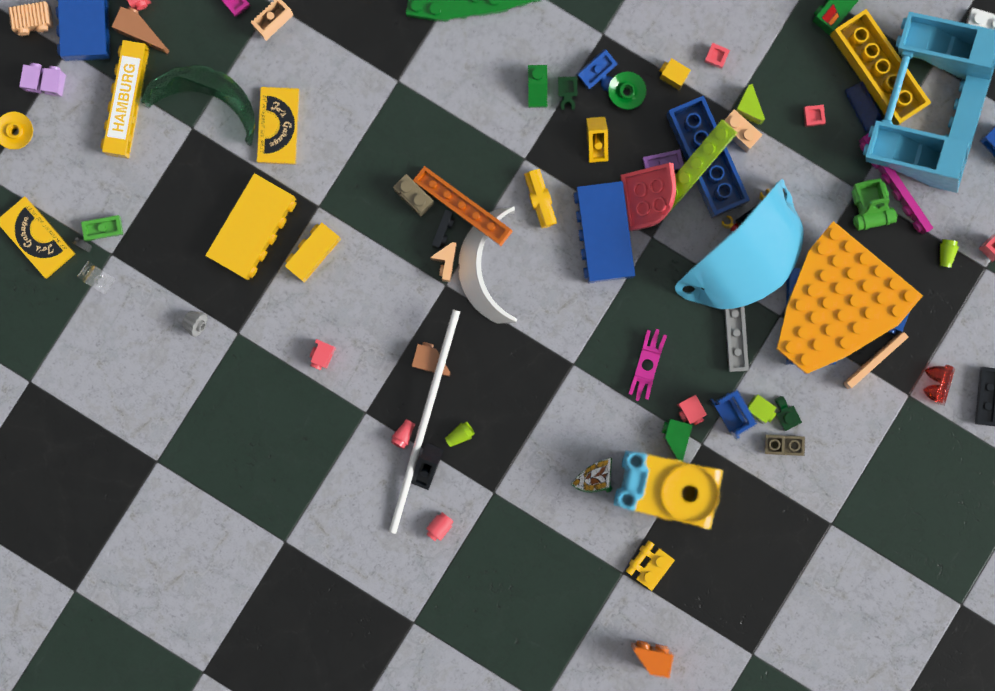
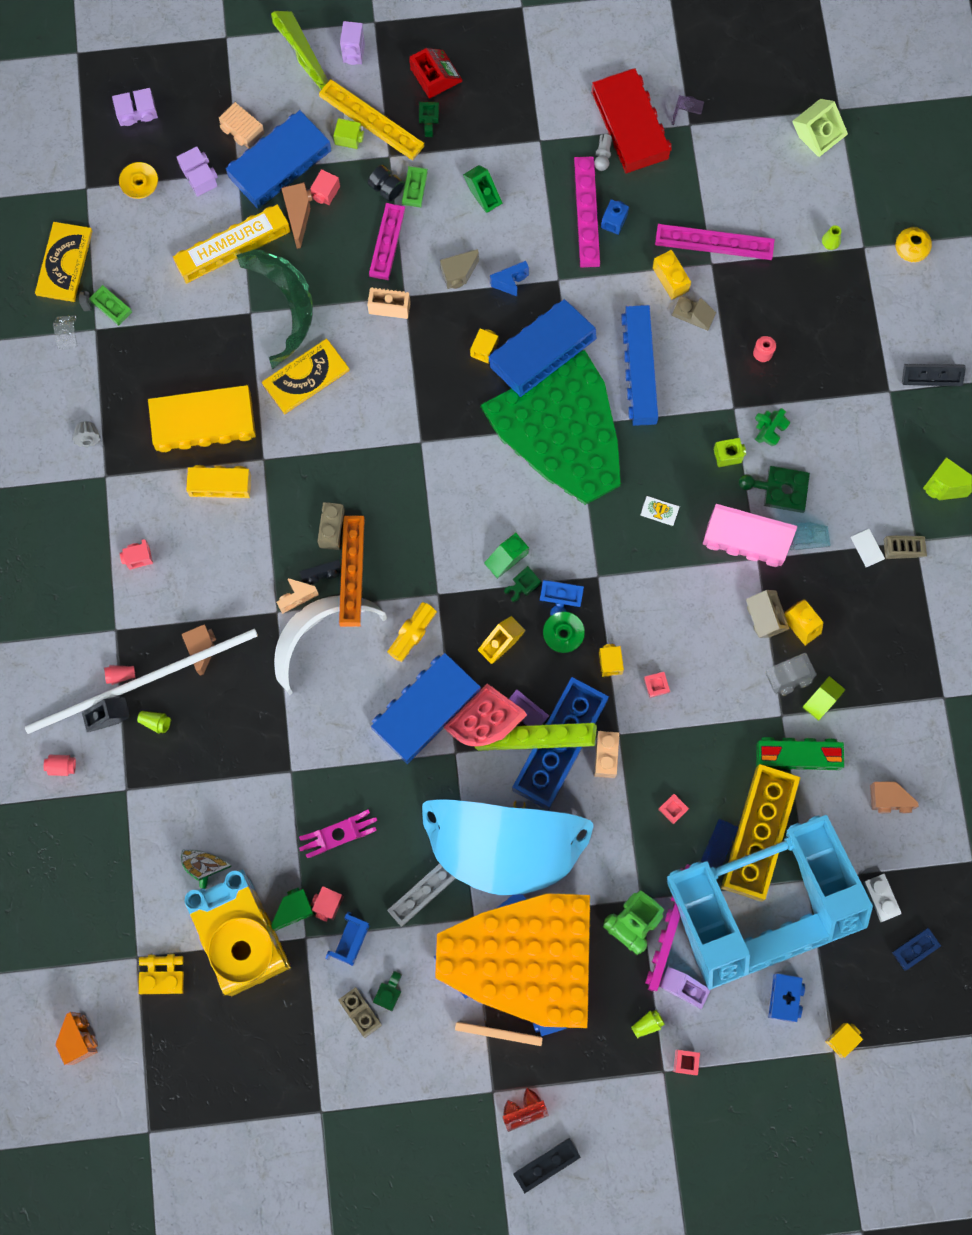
camera: 55 degrees right, 10 degrees down
(750, 107) = (634, 745): lime slope -> none
(761, 409) = (374, 965): lime brick -> none
(943, 207) = (684, 987): none -> lavender slope

